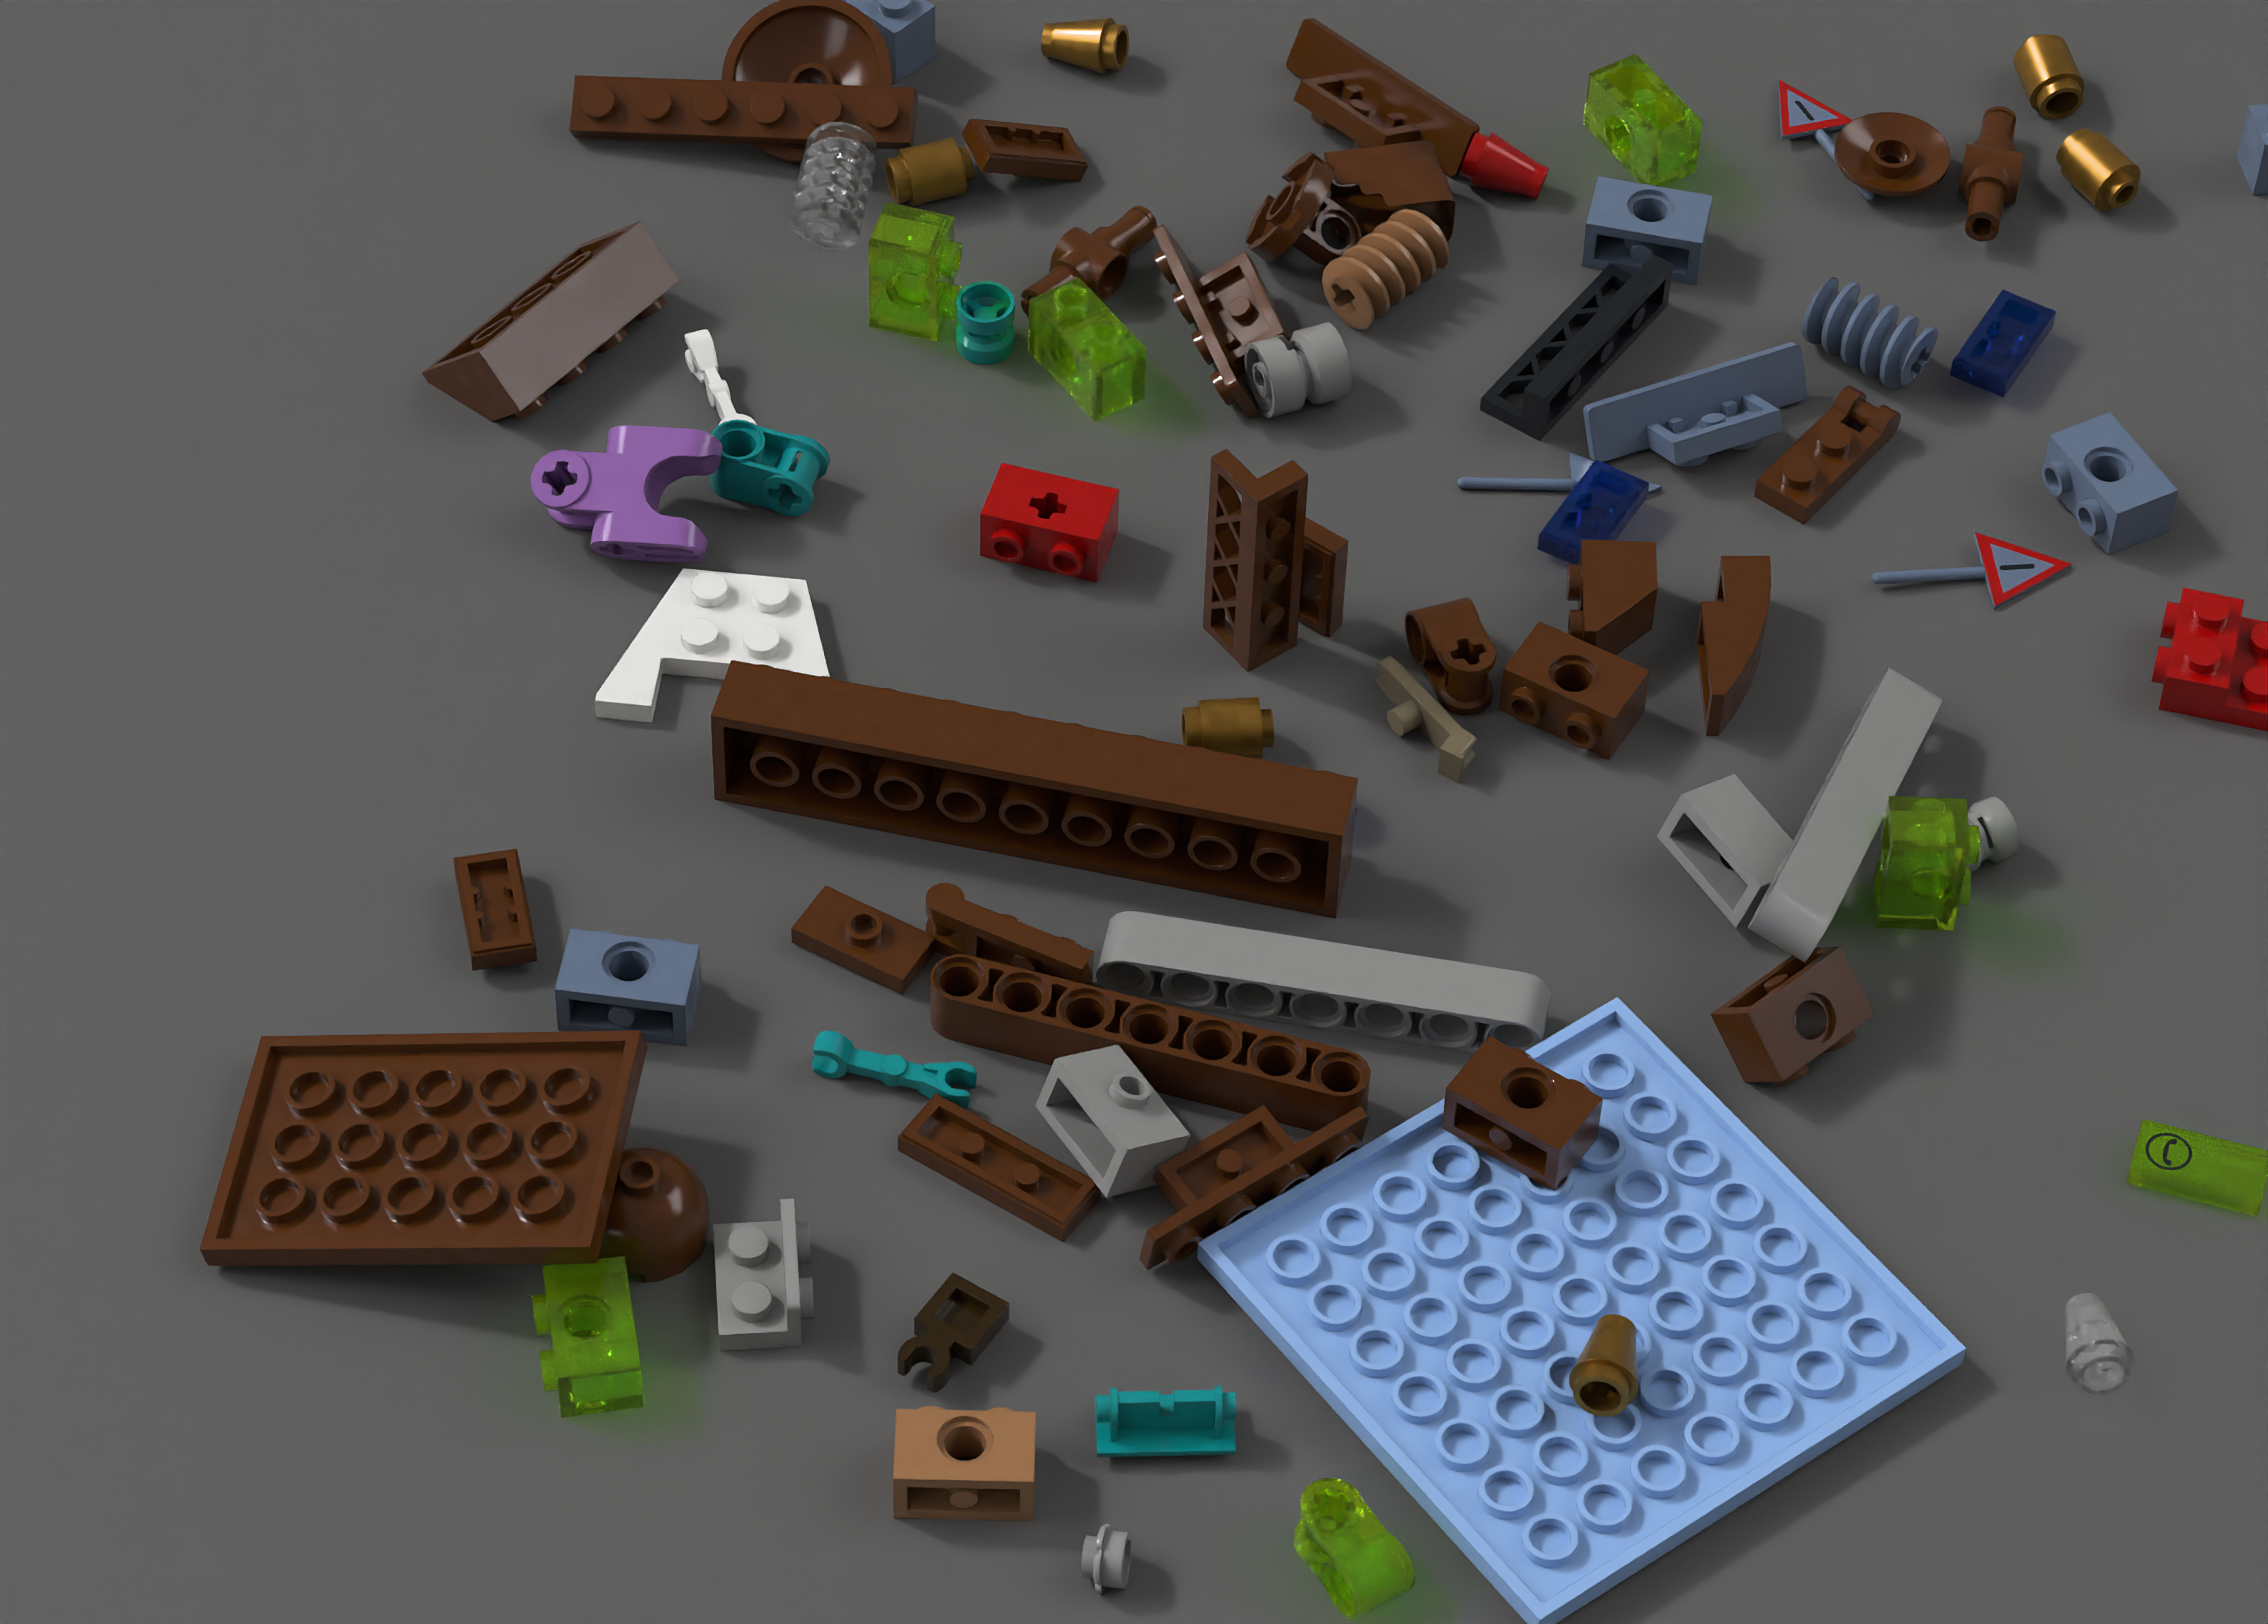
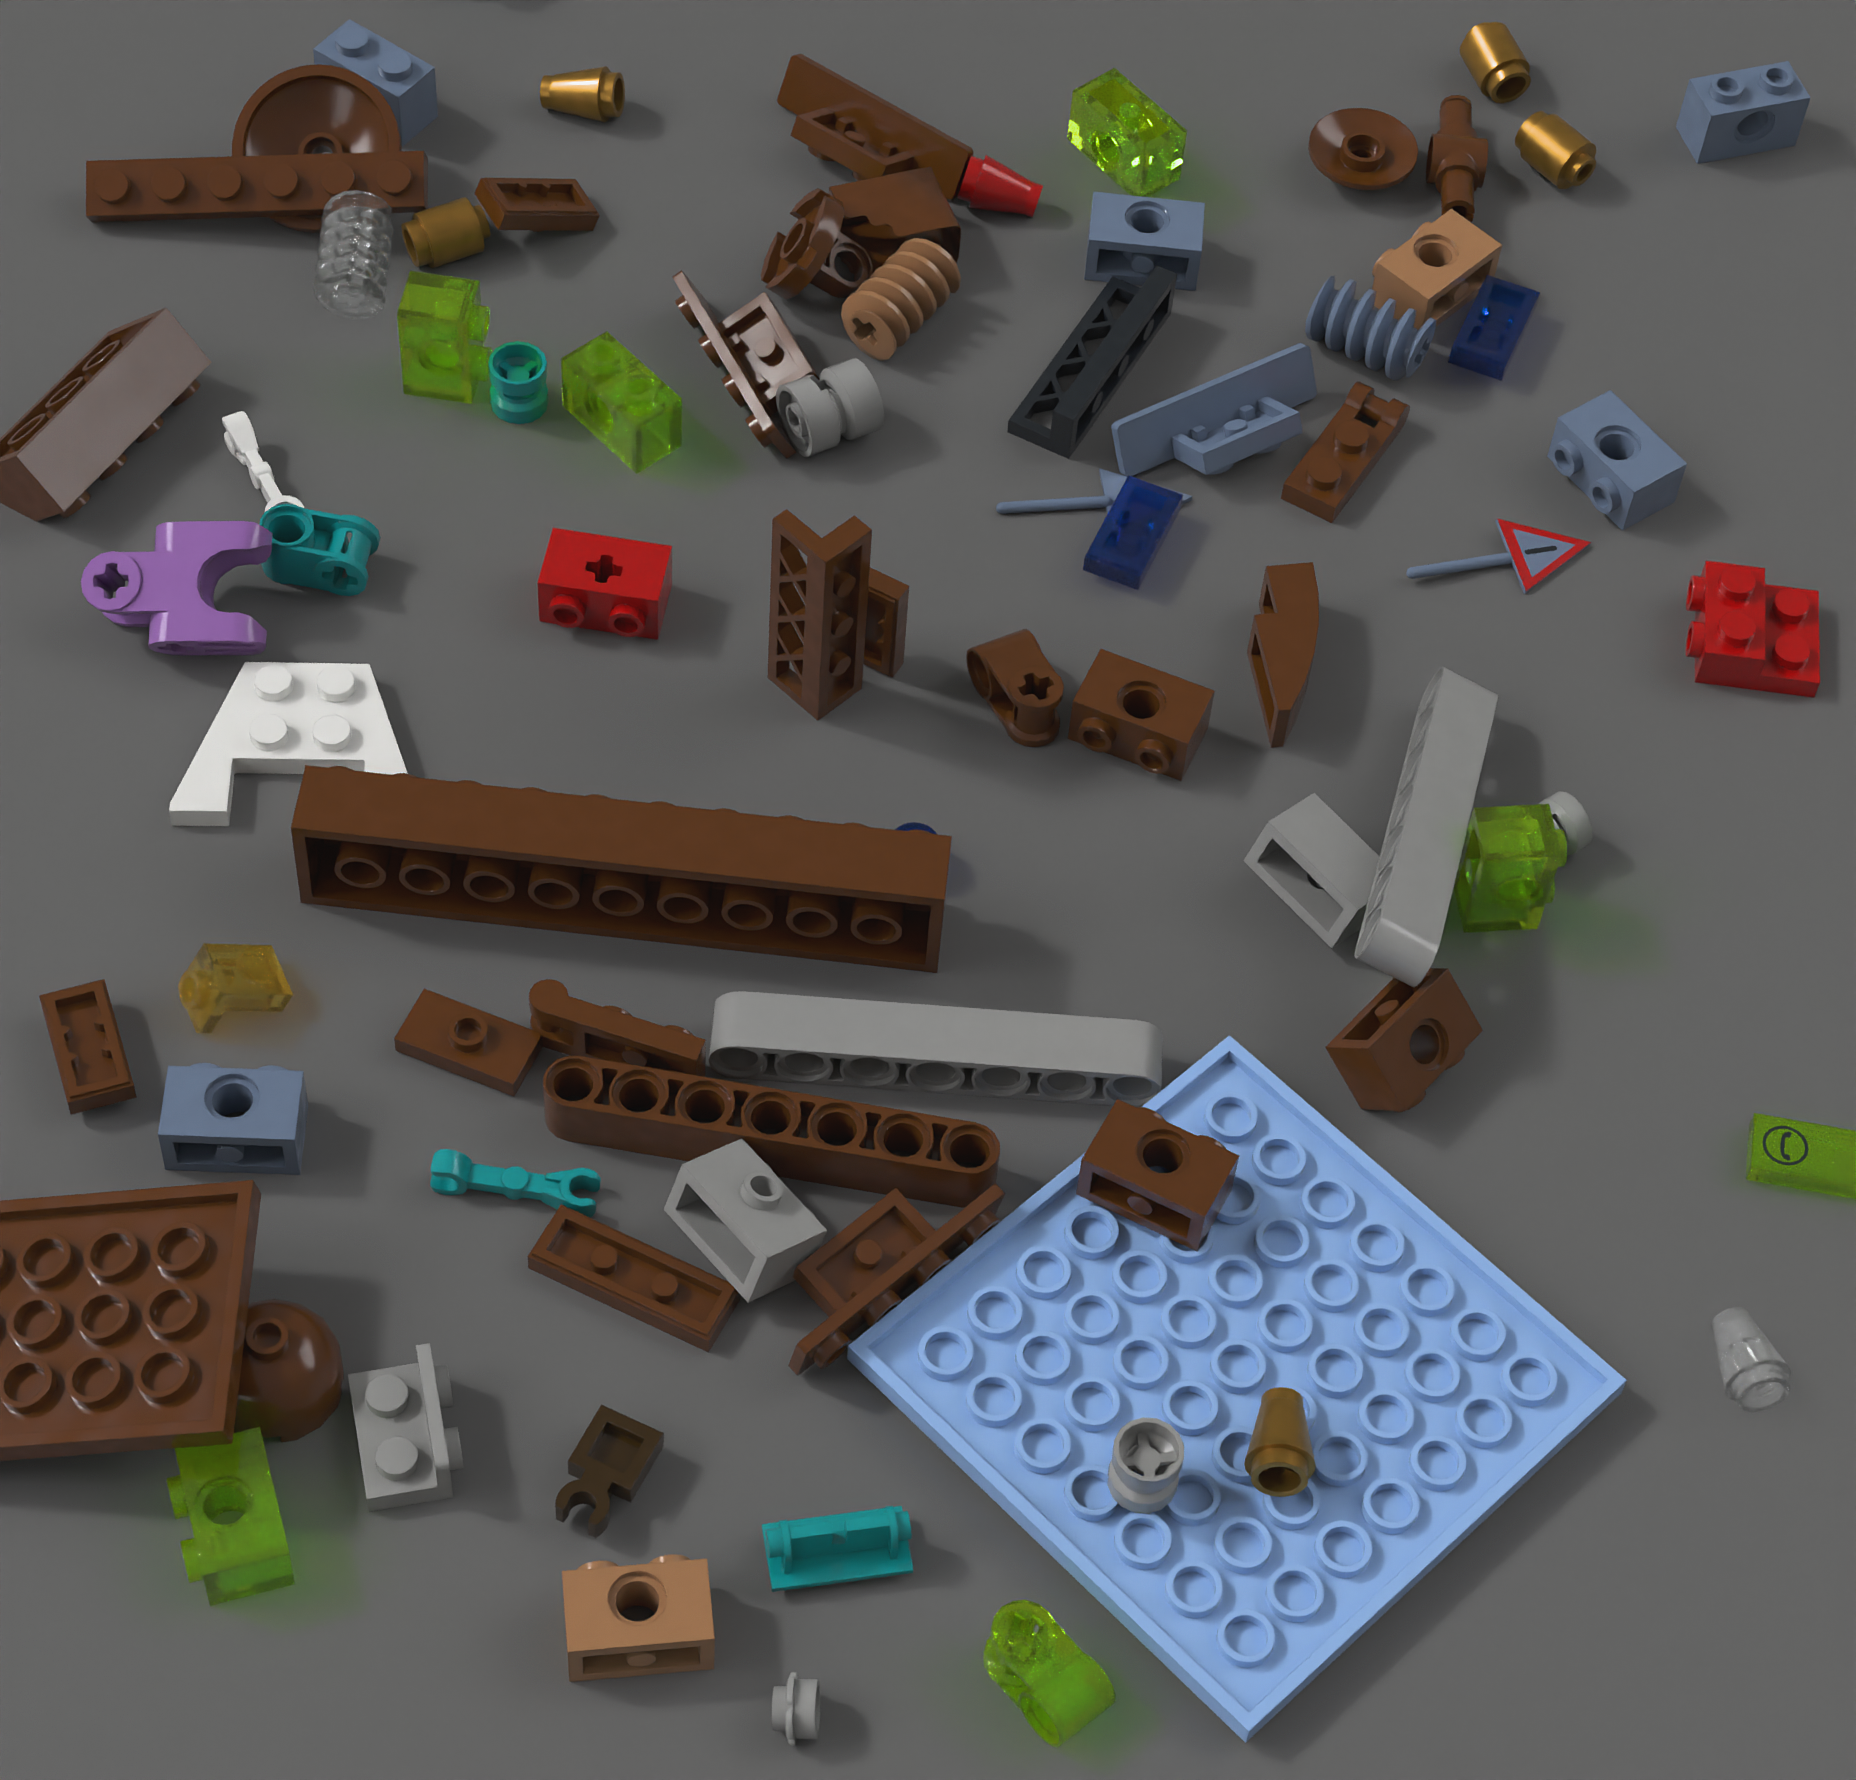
camera: 10 degrees left, 5 degrees up
(639, 860) = (232, 980): none -> clear yellow bracket
(1097, 257) = (617, 307): reddish brown pin -> none
(1229, 726) = (807, 785): pearl gold brick -> none
(1420, 710) = (994, 748): dark tan piece -> none
(1470, 1371) = (1153, 1451): none -> light grey wheel
(1613, 593) = (1164, 610): reddish brown slope -> none
(1806, 116) = (1275, 117): piece -> none
(1950, 280) = (1436, 268): none -> medium nougat brick

